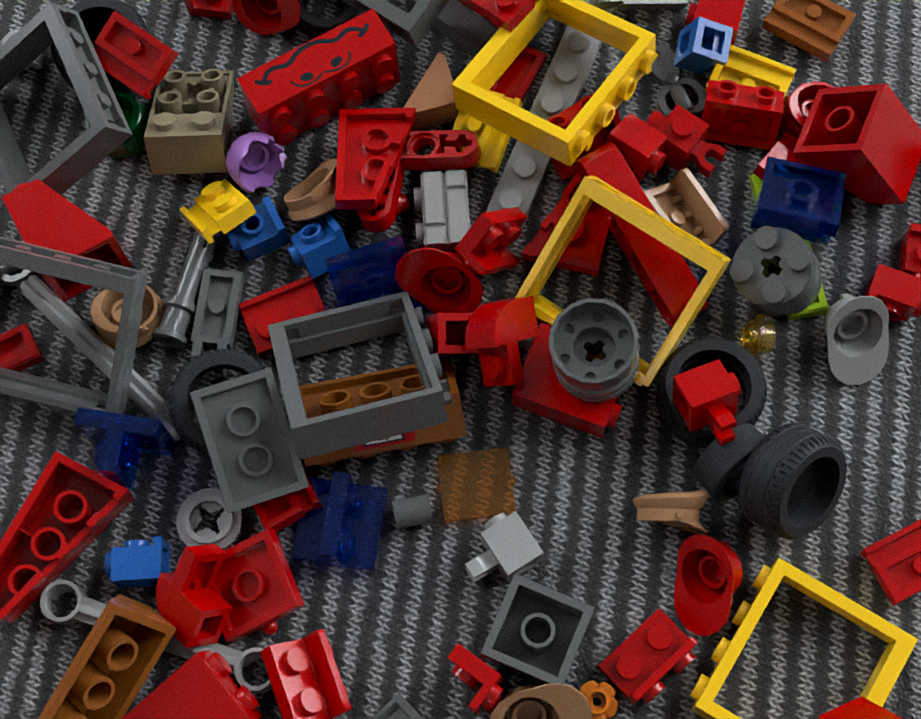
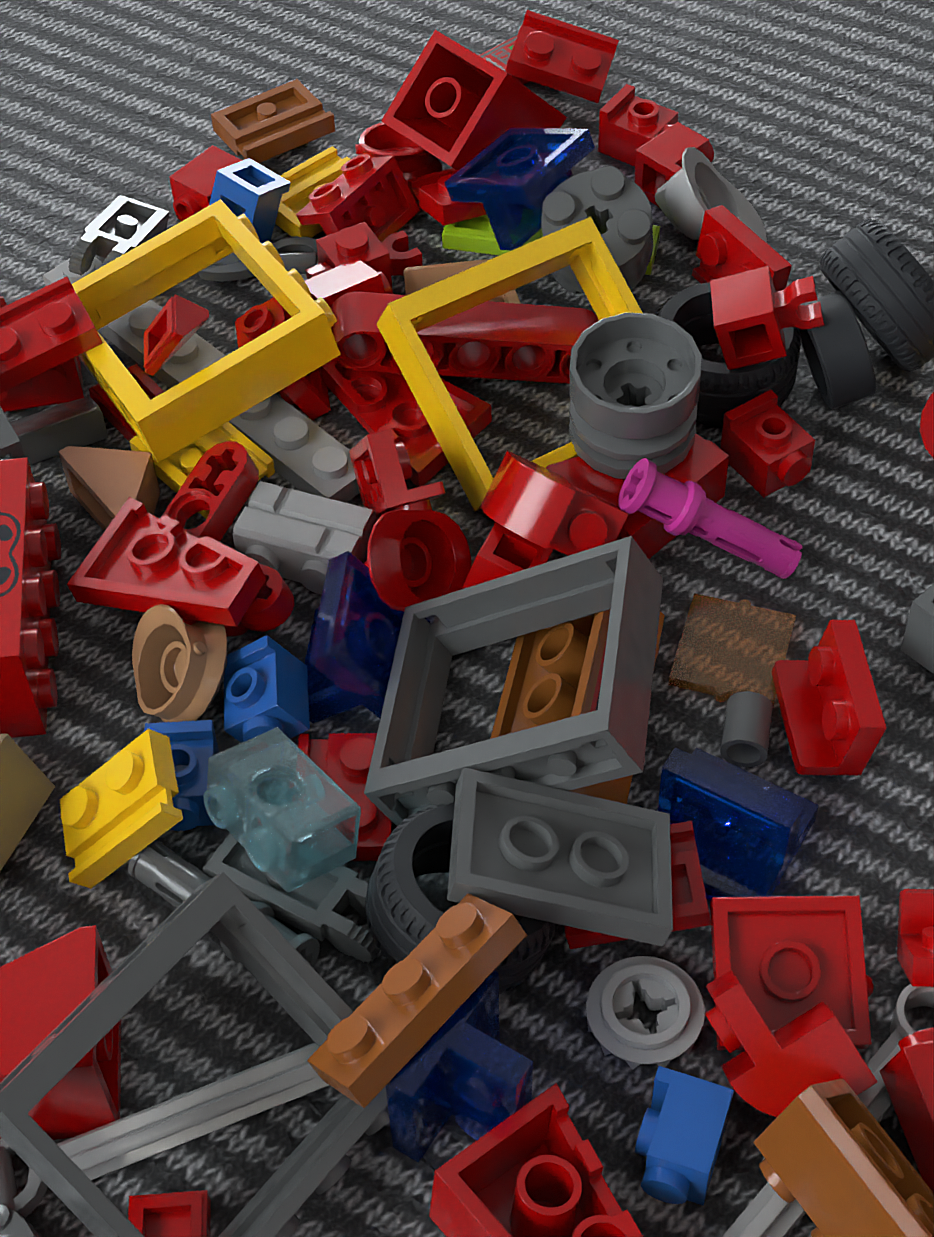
camera: 70 degrees left, 20 degrees down
(106, 314) = (211, 1020): medium nougat piece -> none
(126, 403) = (416, 999): none -> dark orange plate
(236, 310) = (282, 809): none -> clear light blue brick
(254, 160) = (63, 736): medium lavender hair -> none
(438, 547) = (830, 704): none -> red bracket
(508, 548) = (875, 613): light grey brick -> none
(521, 65) = (170, 331): none -> red slope
(537, 416) = (687, 510): none -> dark pink pin
(653, 436) = (766, 444): none -> red brick
(673, 509) = (872, 431): medium nougat piece -> none
(758, 335) = (656, 279): clear yellow plate -> none
(787, 384) = (732, 248): none -> red plate

